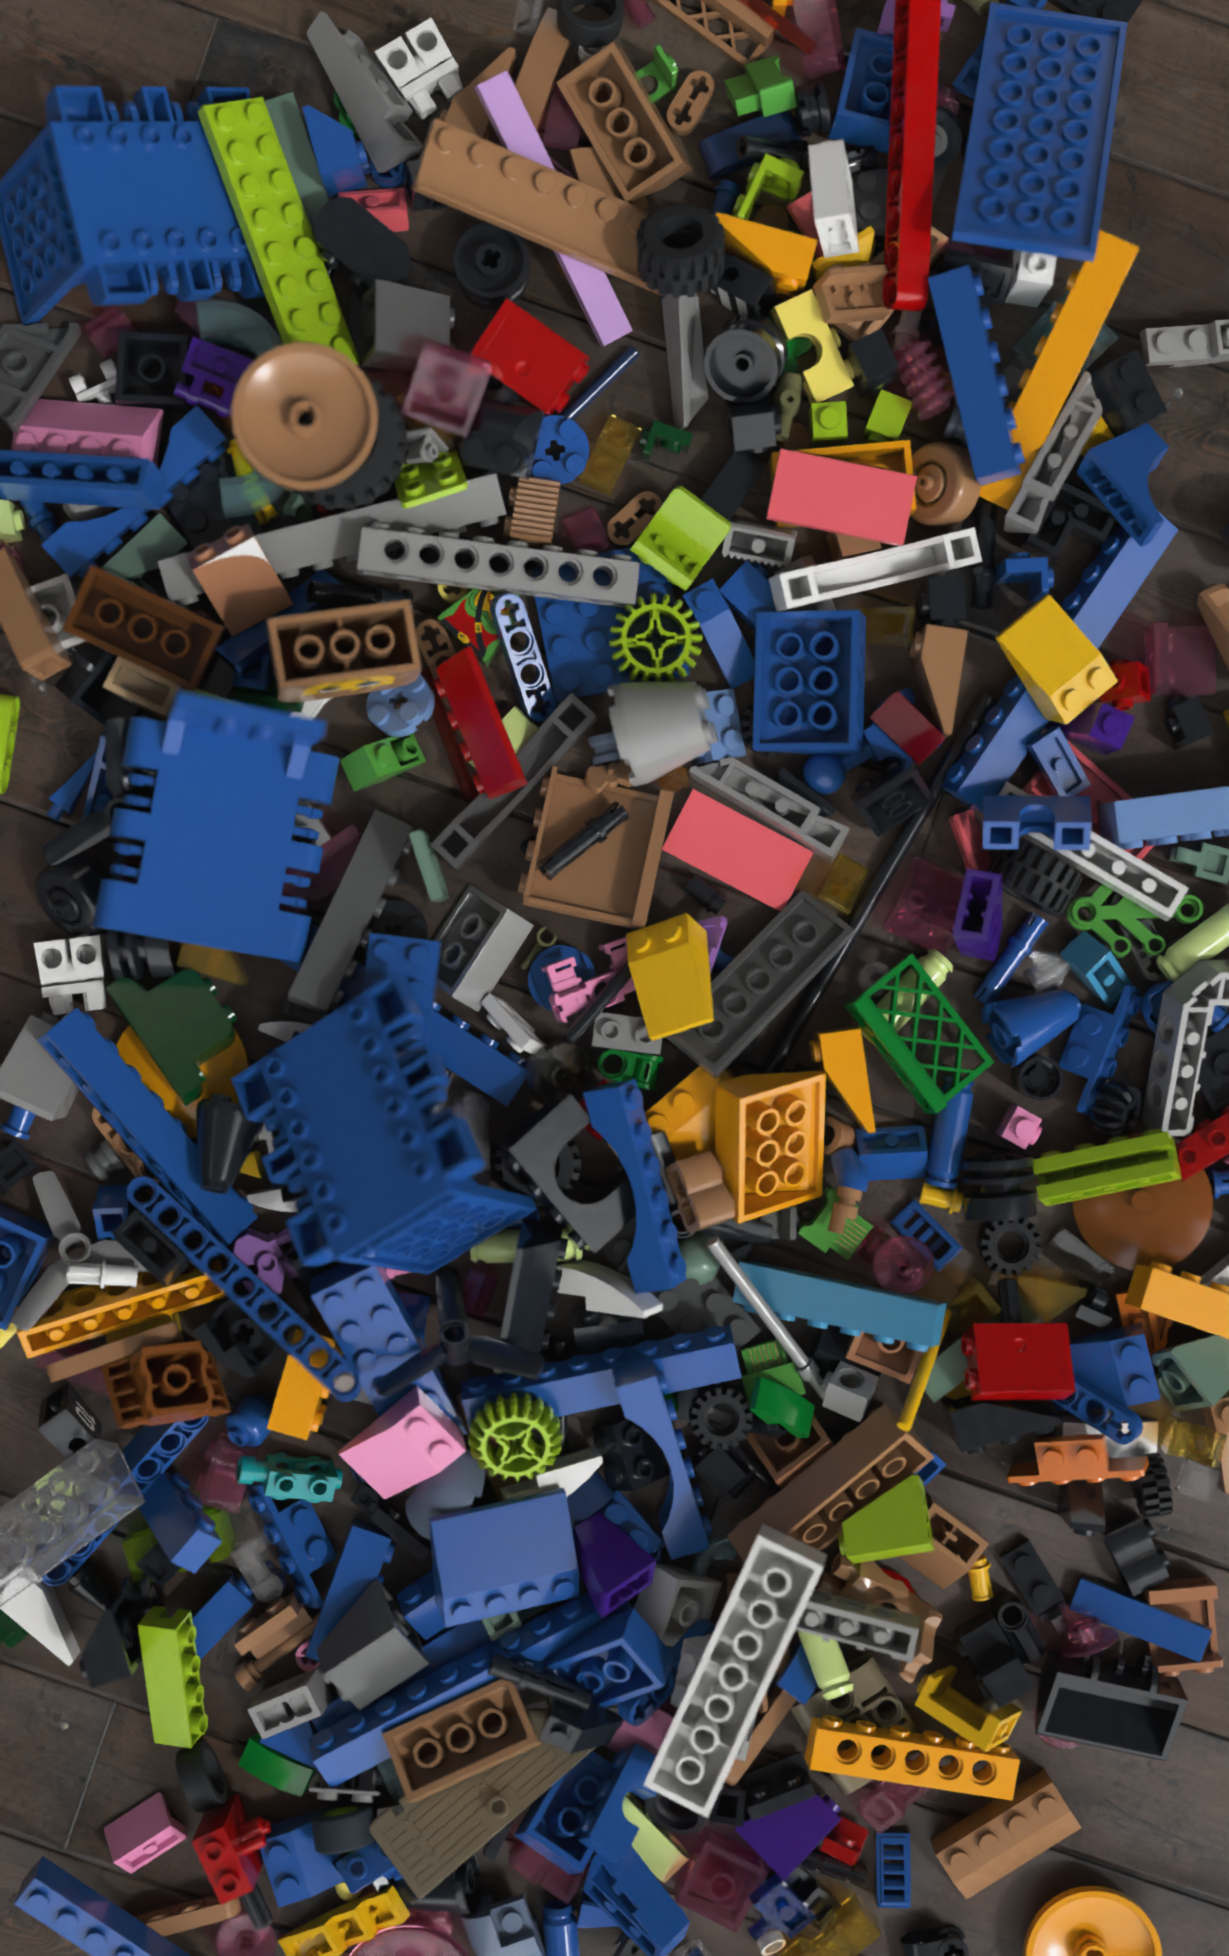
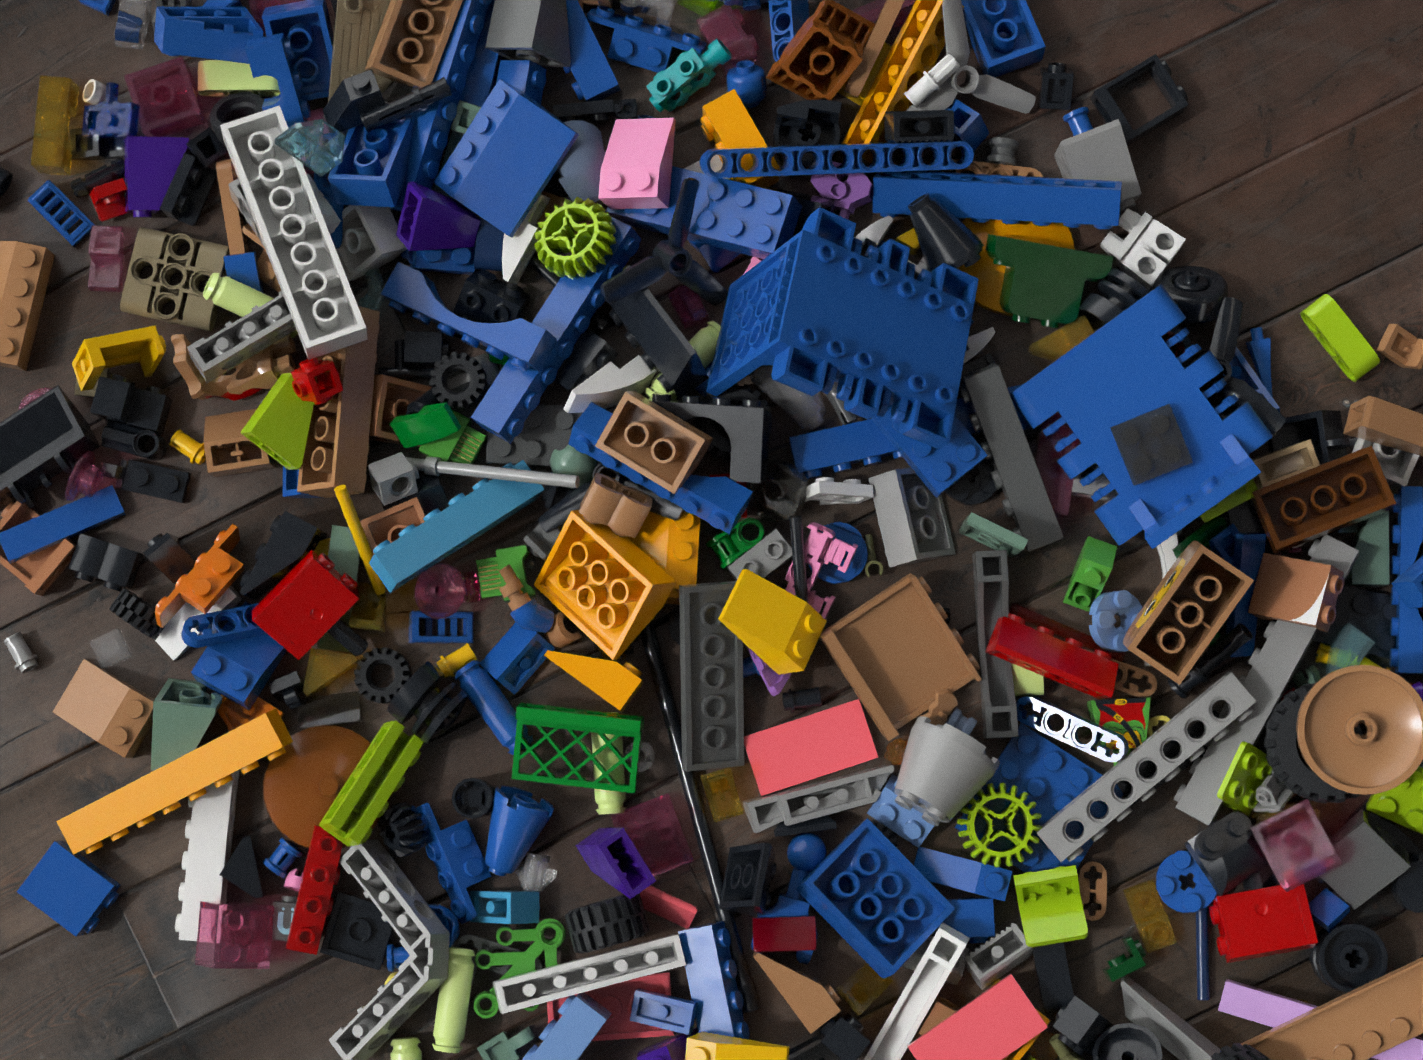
camera: 140 degrees right, 5 degrees down
(233, 808) = (1151, 444): none -> clear smoke plate
(470, 317) = (1328, 909): none -> blue tile
(534, 511) = (1159, 827): medium nougat brick -> none
(587, 531) = (1113, 851): clear pink slope -> none
(593, 832) = (913, 658): black pin -> none
(621, 1211) = (653, 441): none -> medium nougat slope
(649, 1725) = (314, 145): none -> clear light blue slope
(832, 1521) = (316, 381): none -> red brick
(994, 1780) = (55, 328): light orange brick -> none
(1011, 958) = (566, 857): blue pin -> none
(1019, 1127) = (451, 755): bright pink brick -> none
(1060, 817) = (660, 943): blue arch -> none
(1192, 1441) = (140, 668): clear yellow slope -> none

